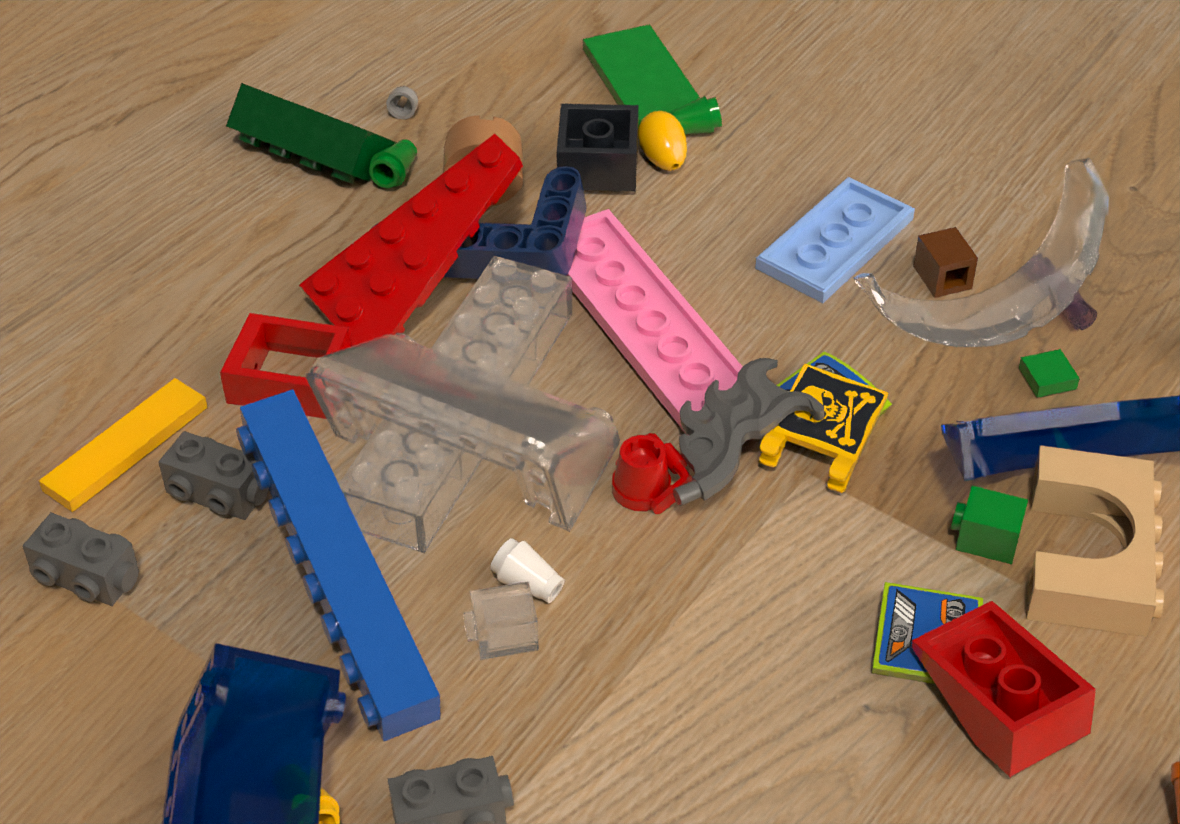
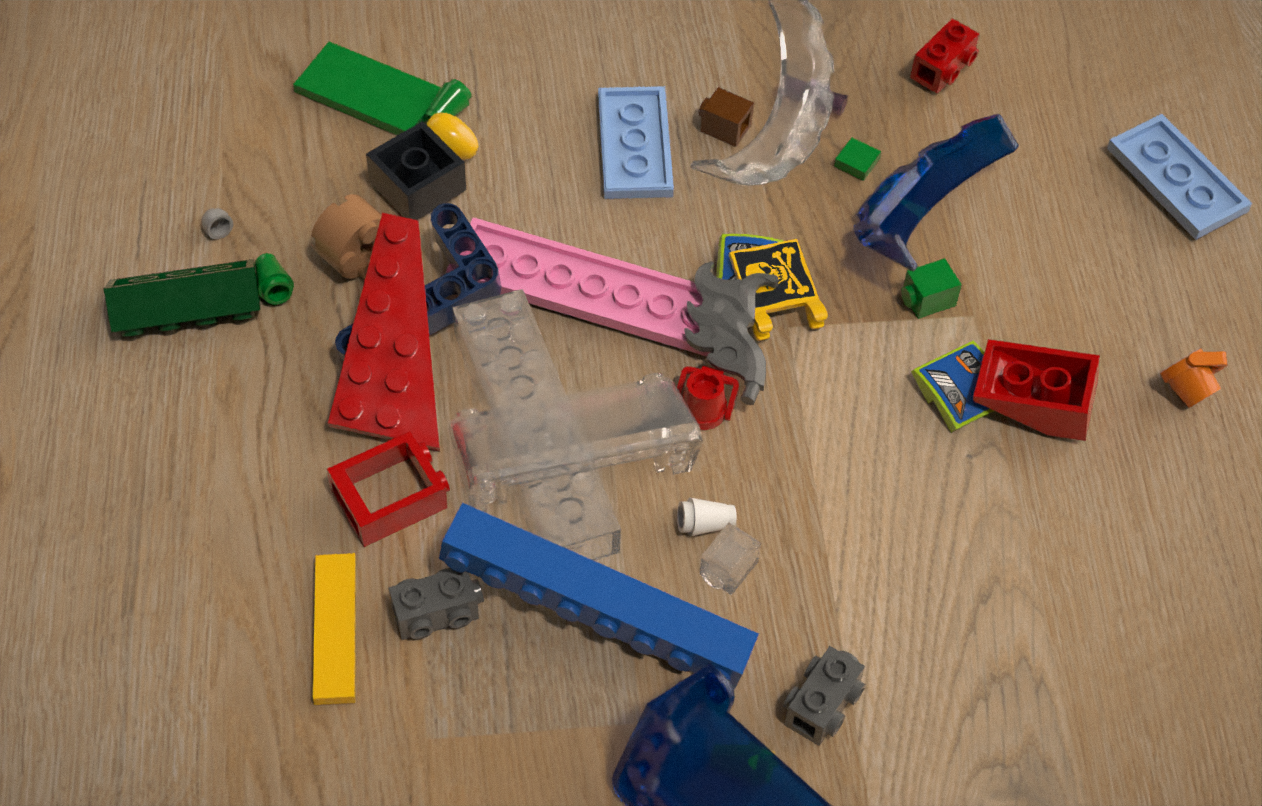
camera: 45 degrees left, 10 degrees up
(81, 559) = (418, 727): dark grey brick -> none
(1109, 591) = (983, 220): tan arch -> none

